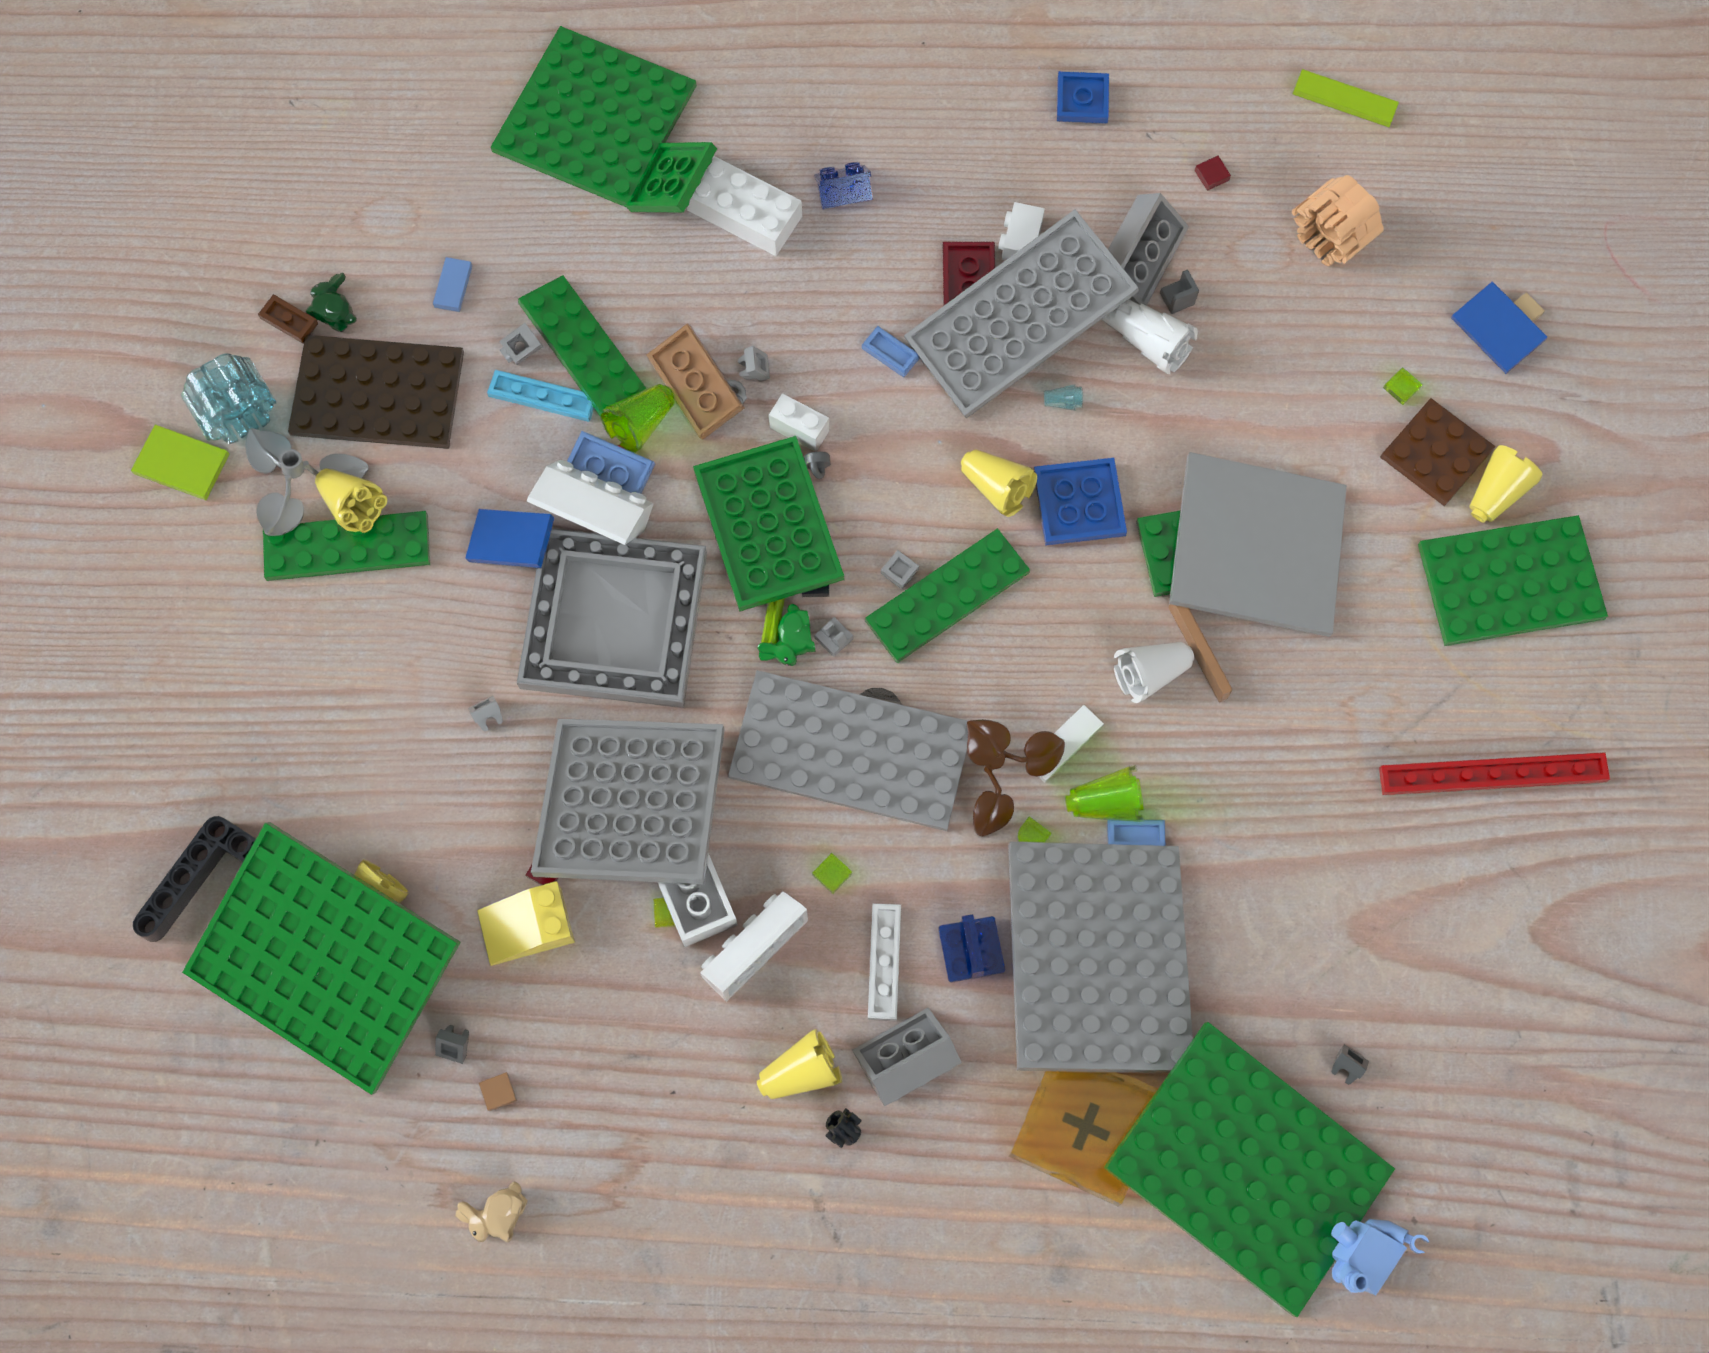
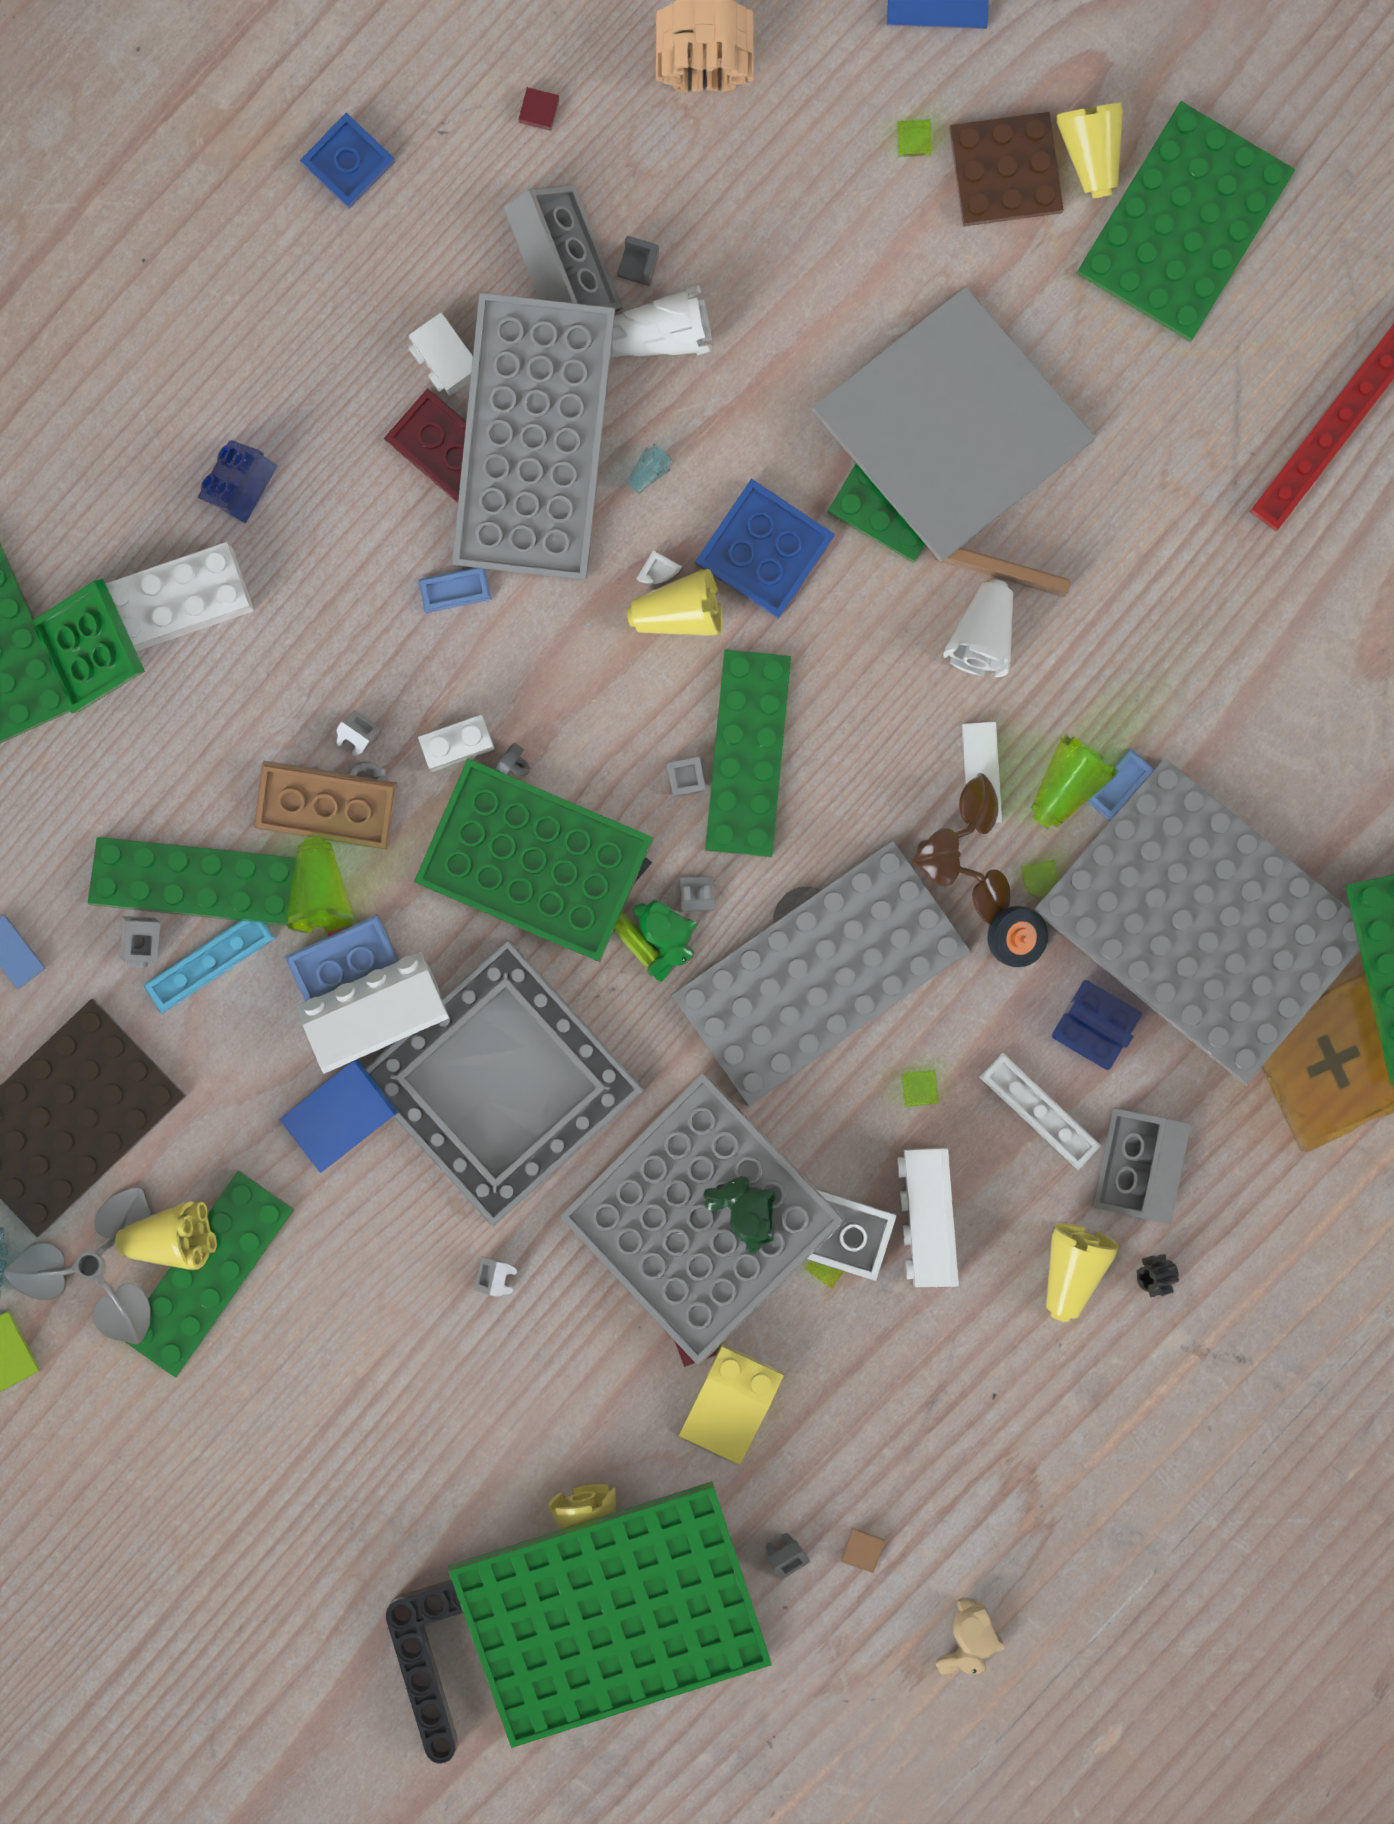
camera: 50 degrees left, 15 degrees up
(657, 818) = (749, 1211): none -> dark green animal
(982, 849) = (1017, 936): none -> black wheel
(1009, 450) = (658, 570): none -> white tile

